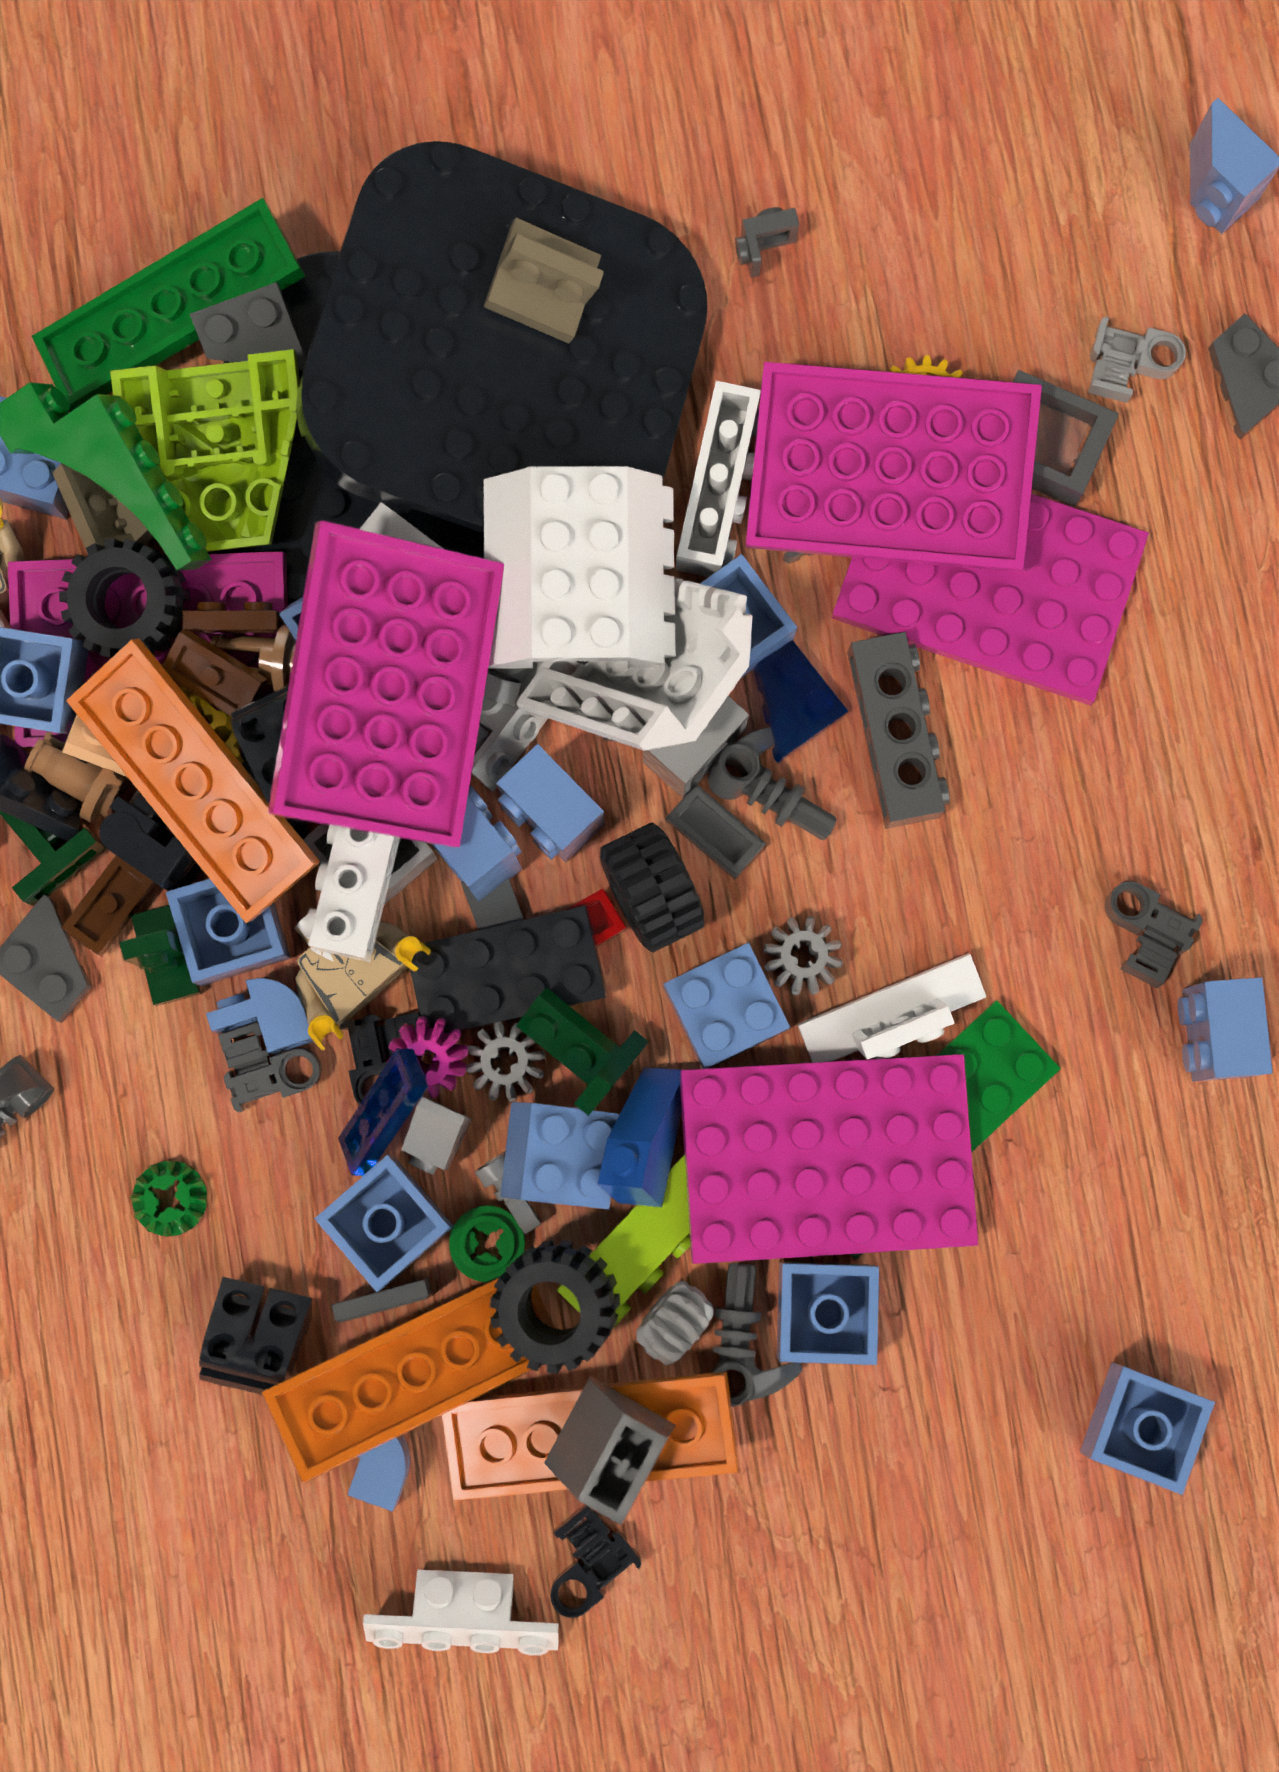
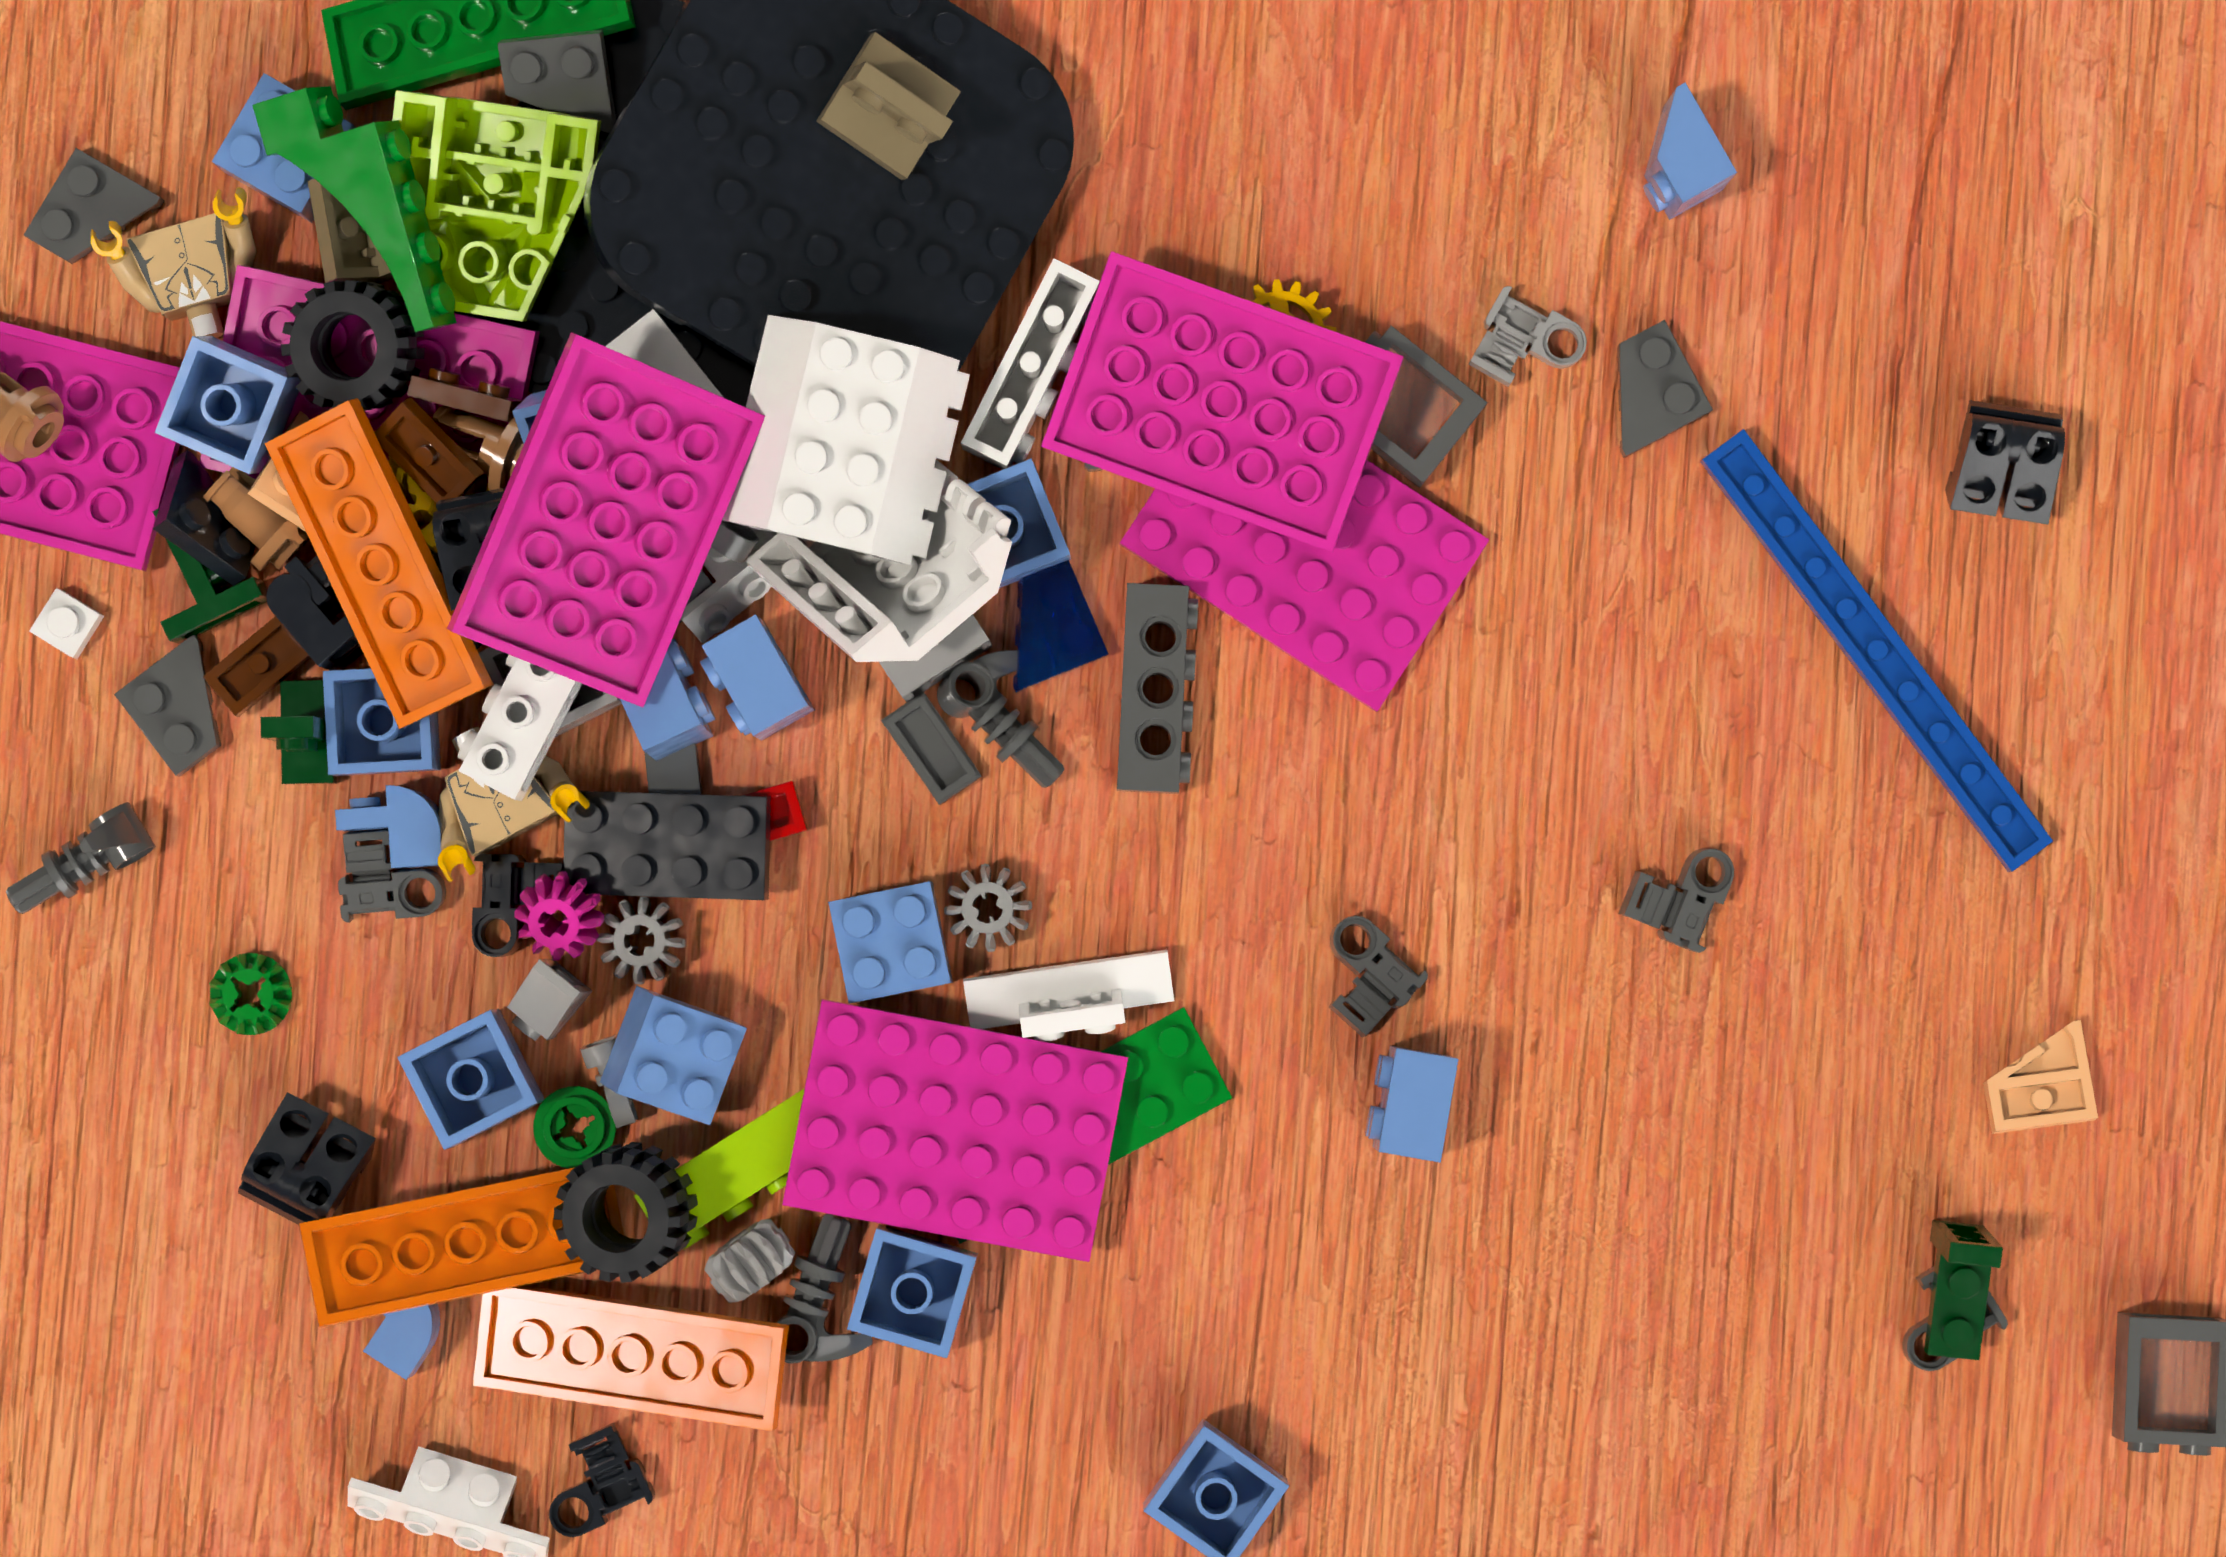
camera: 15 degrees right, 5 degrees up
(382, 1300) = (450, 1159): dark grey tile -> none
(383, 1111) = (496, 963): clear blue plate -> none
(579, 1046) = (723, 947): dark green bracket -> none
(608, 1449) = (643, 1373): dark grey slope -> none
(643, 1140) = (765, 1061): blue slope -> none
(652, 887) = (841, 796): black tyre -> none
(765, 231) = (1165, 92): dark grey bracket -> none

